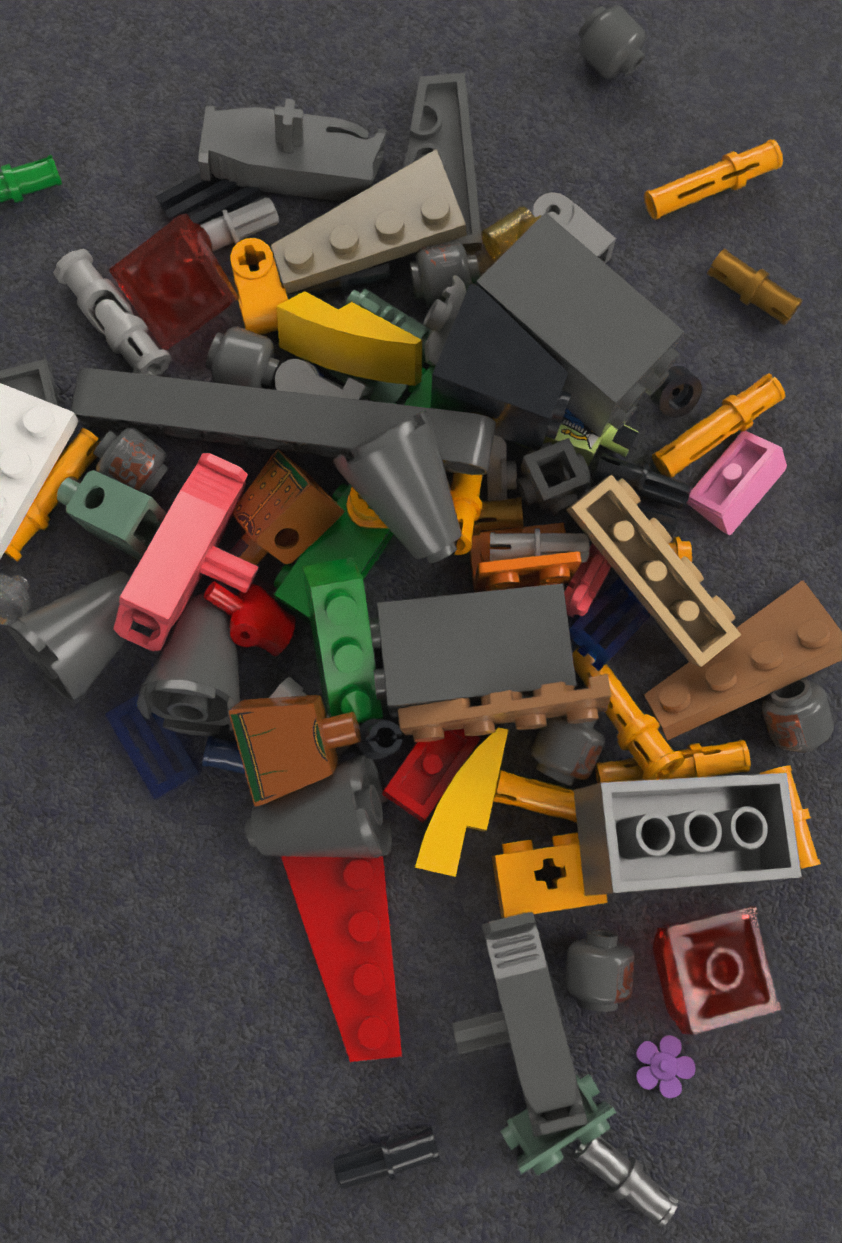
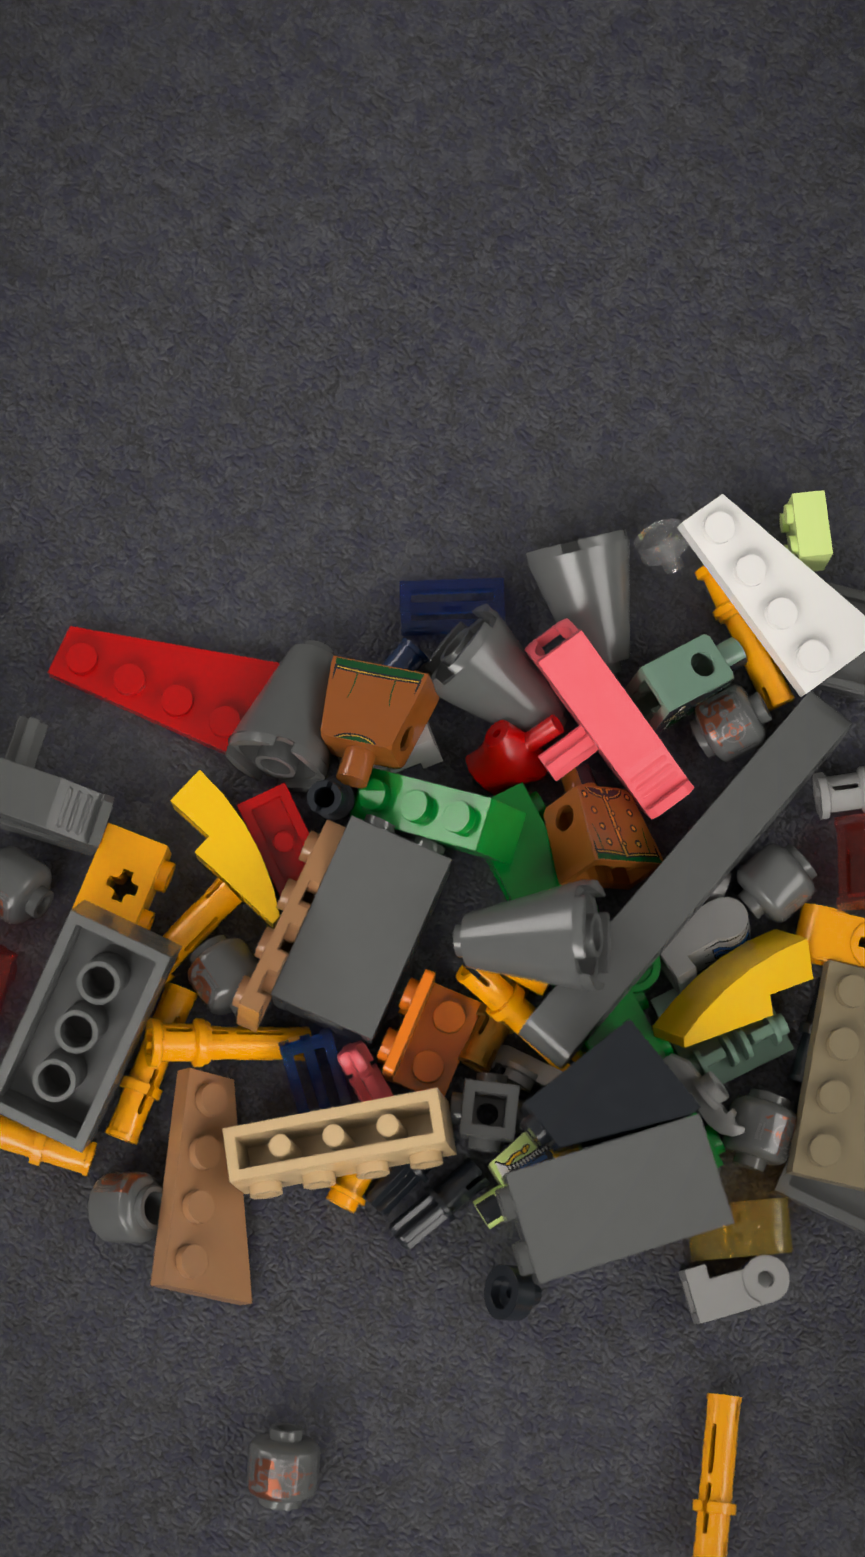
camera: 120 degrees right, 0 degrees up
(537, 544) = (427, 1049): light grey axle -> none
(734, 415) = (452, 1325): light orange pin -> none
(737, 481) = (386, 1304): bright pink slope -> none
(754, 287) = (576, 1447): pearl gold pin -> none

